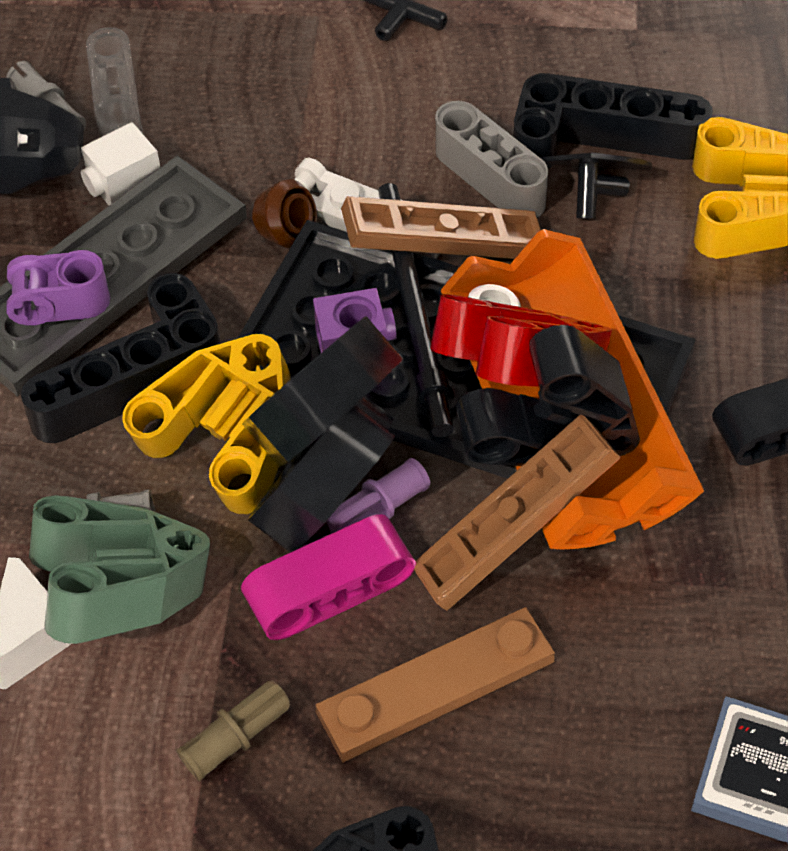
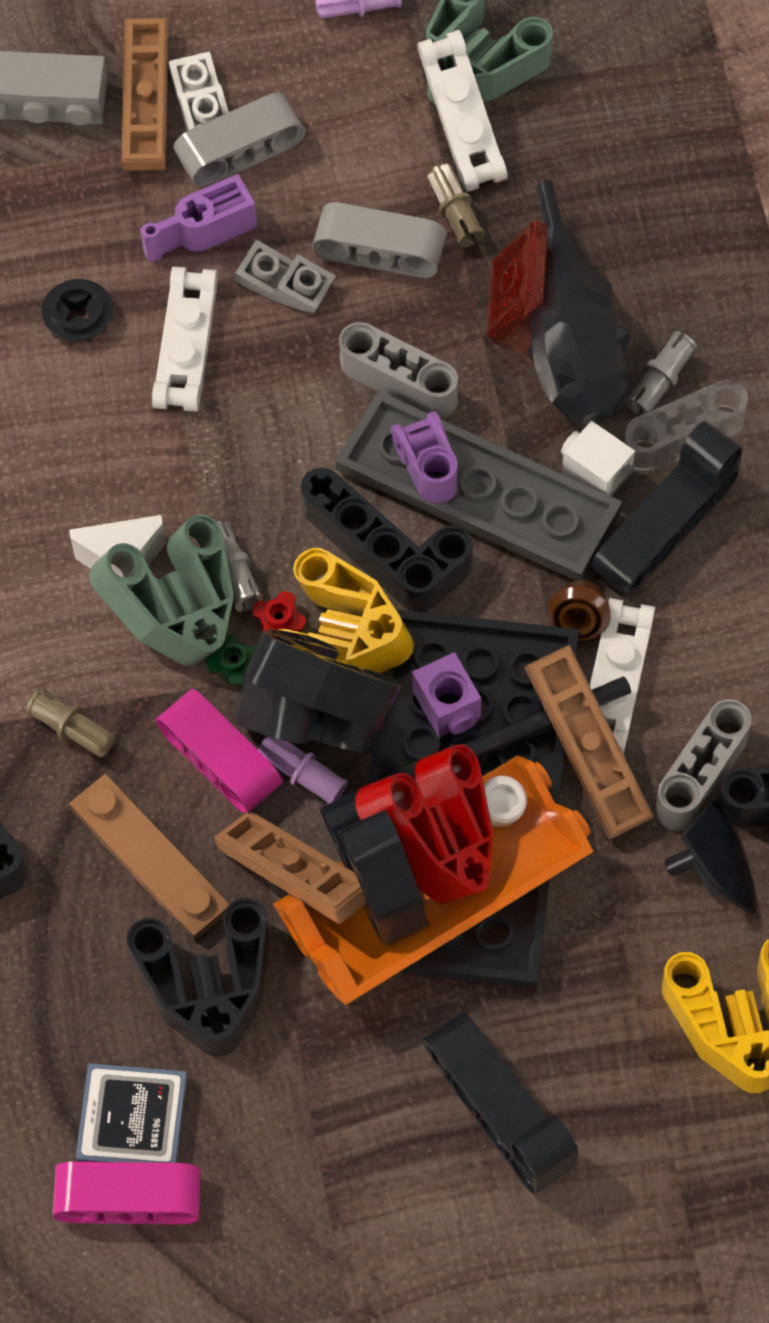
camera: 75 degrees right, 10 degrees up
(183, 497) = (282, 604): none -> red plate
(200, 117) = (672, 511): none -> black beam
(233, 540) = (220, 663): none -> dark green plate
(630, 647) = (193, 1018): none -> black connector

